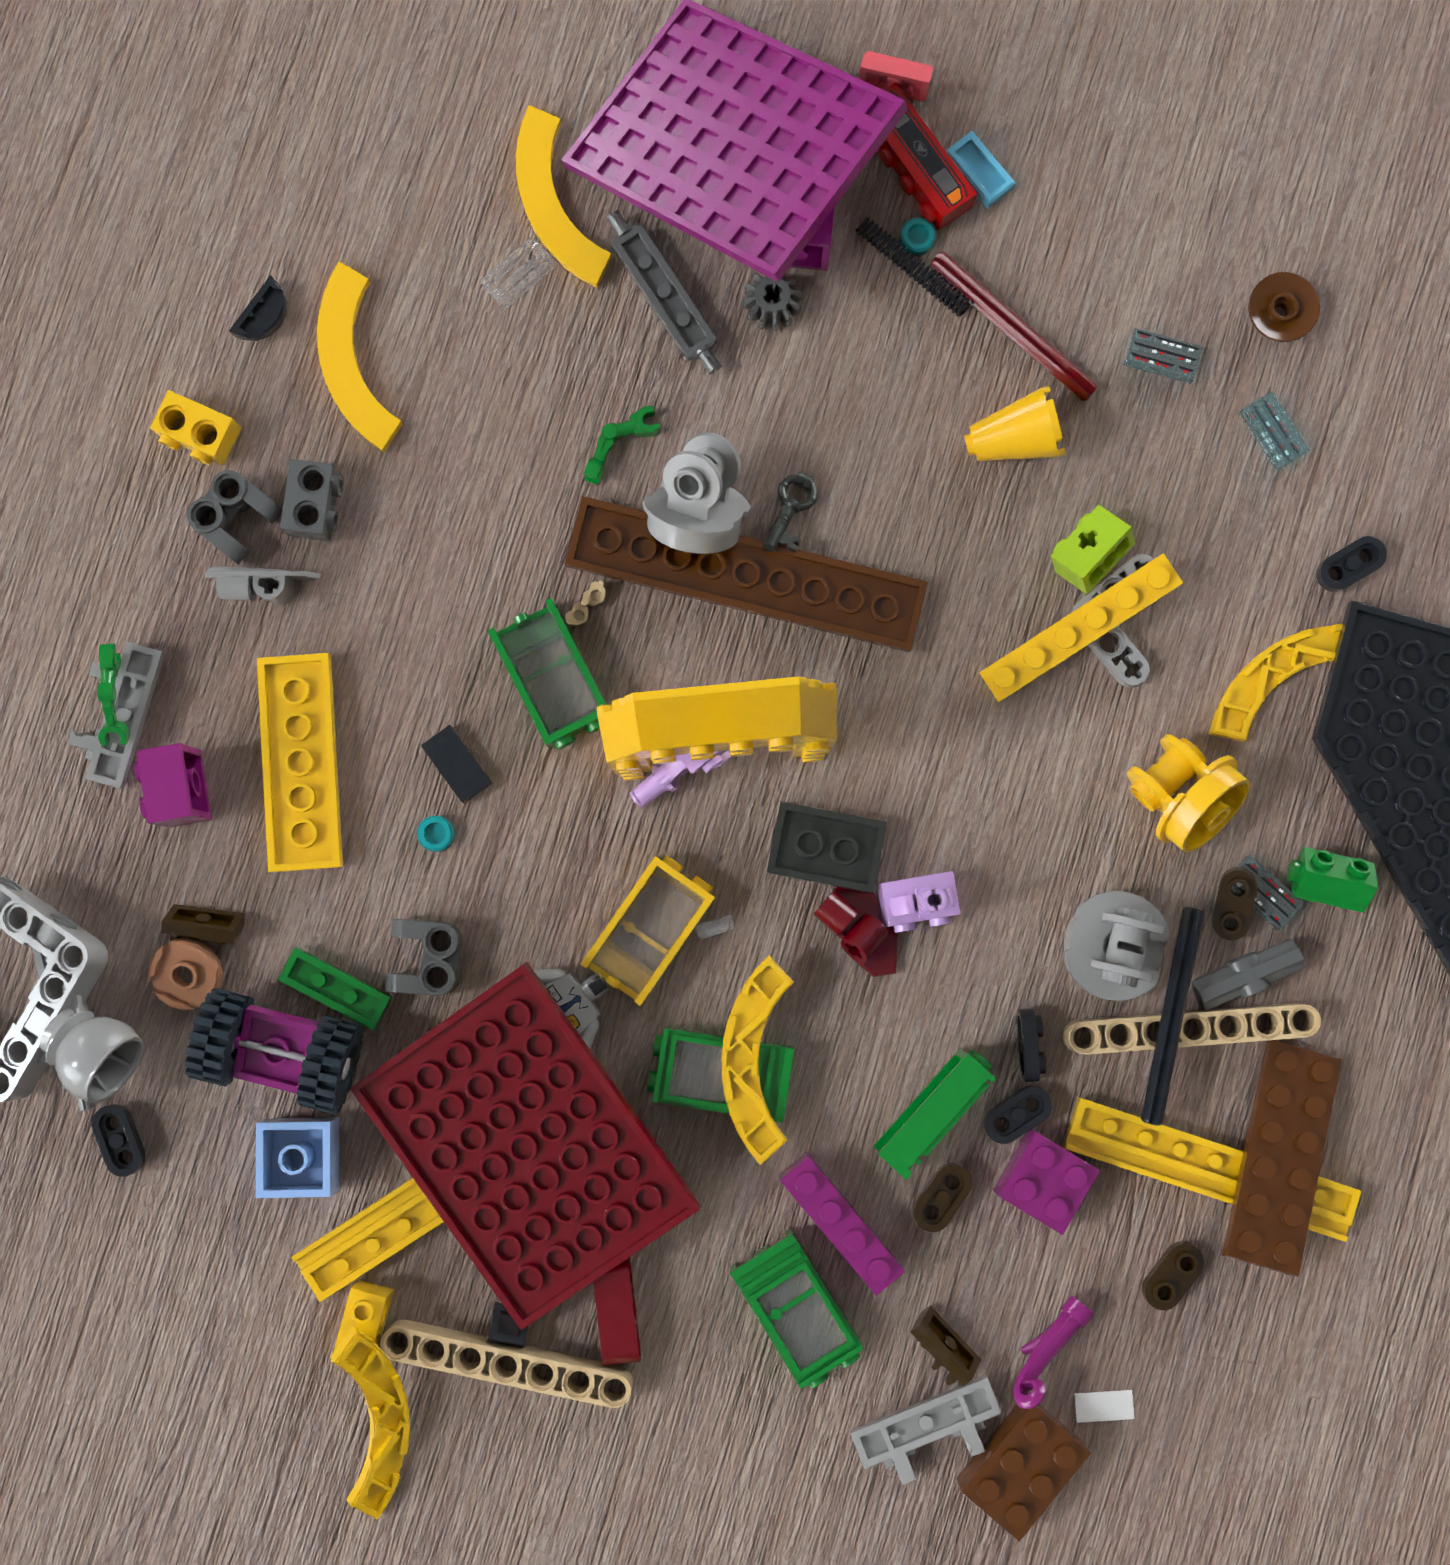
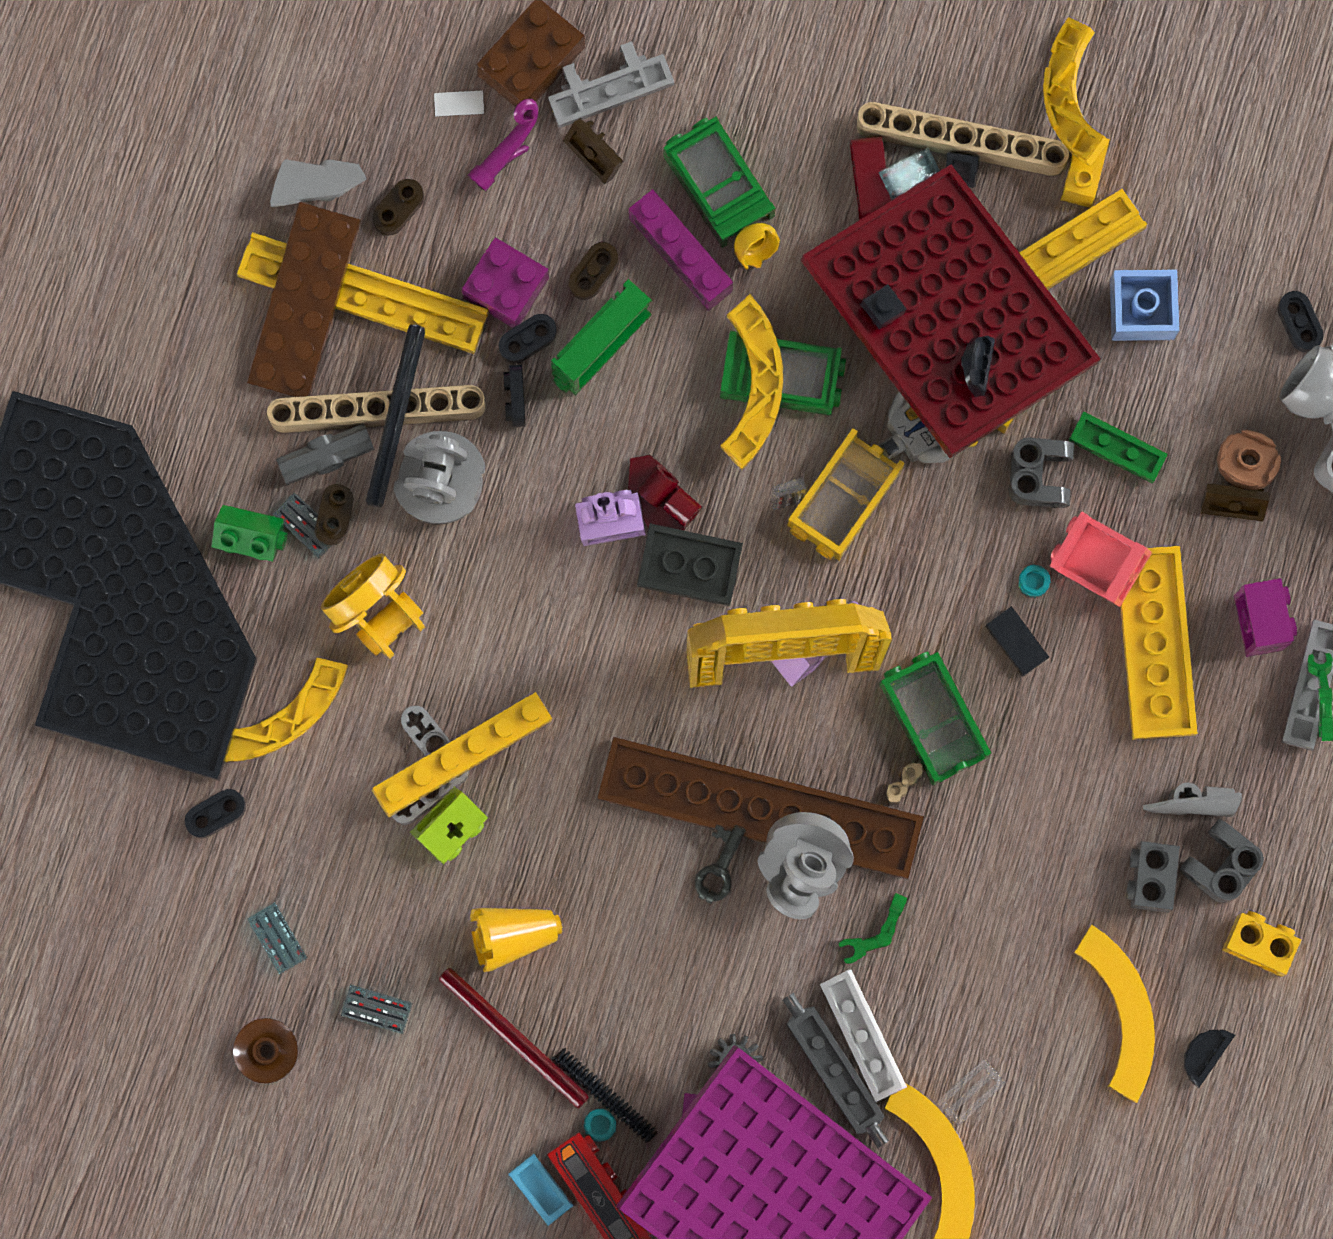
camera: 175 degrees right, 5 degrees down
(274, 1050) = (1166, 391): black plate -> none
(359, 855) = (1099, 558): none -> coral panel
(492, 1075) = (977, 363): none -> black plate
(570, 1318) = (908, 173): none -> clear light blue tile
(602, 1145) = (883, 306): none -> black plate
(633, 327) = (863, 1035): none -> white plate
(752, 1230) = (755, 244): none -> yellow hair
(1280, 1303) = (312, 182): none -> light grey panel

